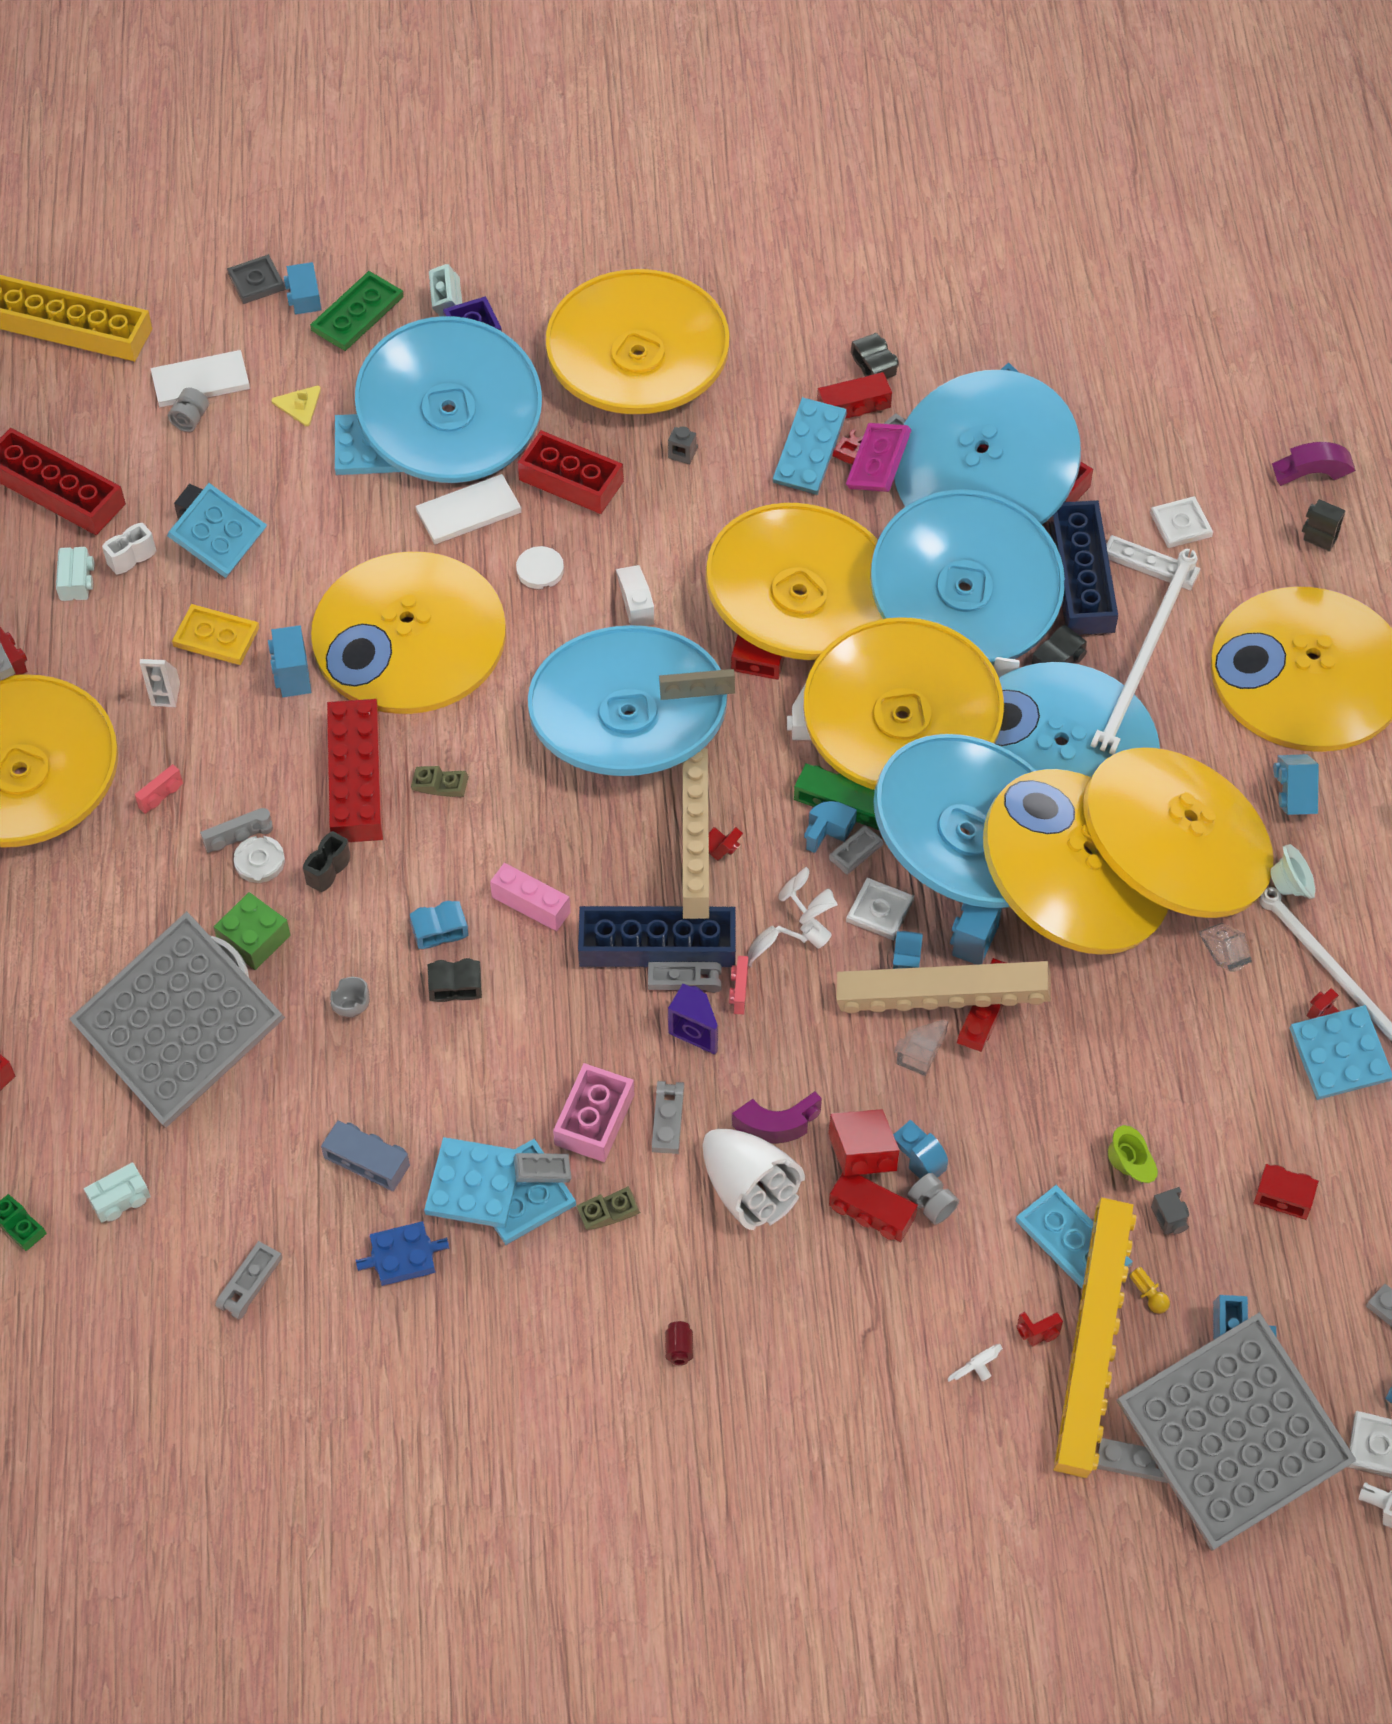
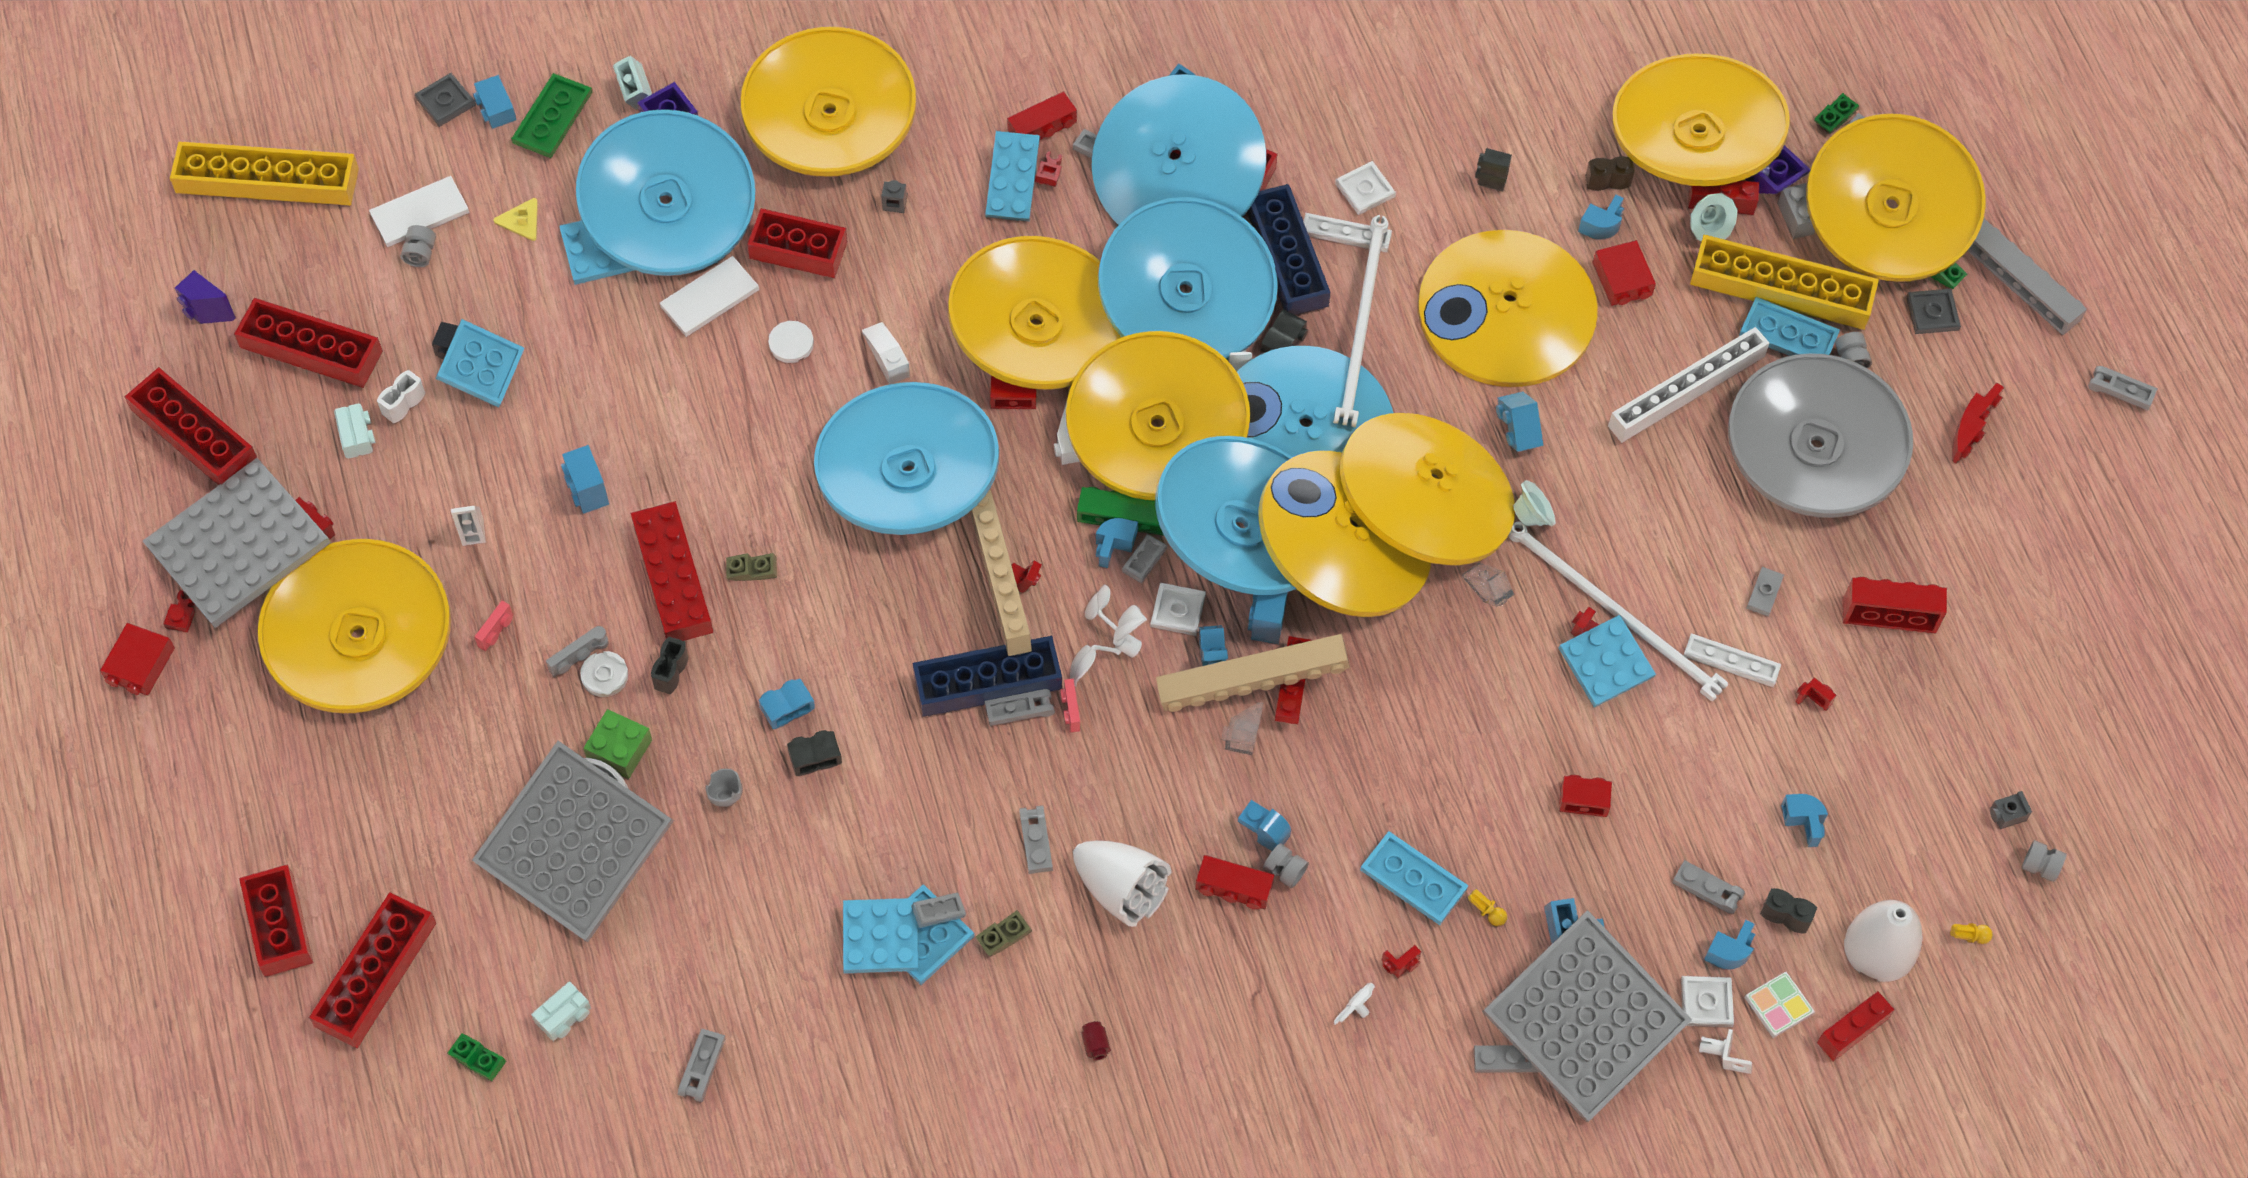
camera: 15 degrees left, 5 degrees up
(215, 634) = (505, 465): yellow plate -> none
(365, 1155) = (776, 930): sand blue brick -> none
(402, 1253) = (831, 1012): blue plate -> none
(415, 664) = (693, 460): yellow dish -> none
(530, 896) = (863, 661): bright pink brick -> none
(594, 1112) = (971, 850): bright pink brick -> none
(693, 1019) = (1039, 746): dark purple slope -> none
(697, 684) = (968, 433): dark tan plate -> none
(777, 1125) = (1133, 828): magenta arch -> none
(863, 1142) = (1214, 828): brick -> none
(873, 356) = (1050, 75): pearl dark grey brick -> none
(878, 457) = (1079, 176): dark pink plate -> none
(1094, 1337) = (1451, 960): yellow brick -> none
(1131, 1155) = (1447, 791): lime piece -> none
(1170, 1211) = (1491, 834): dark grey brick -> none
(1314, 458) = (1471, 106): magenta arch -> none

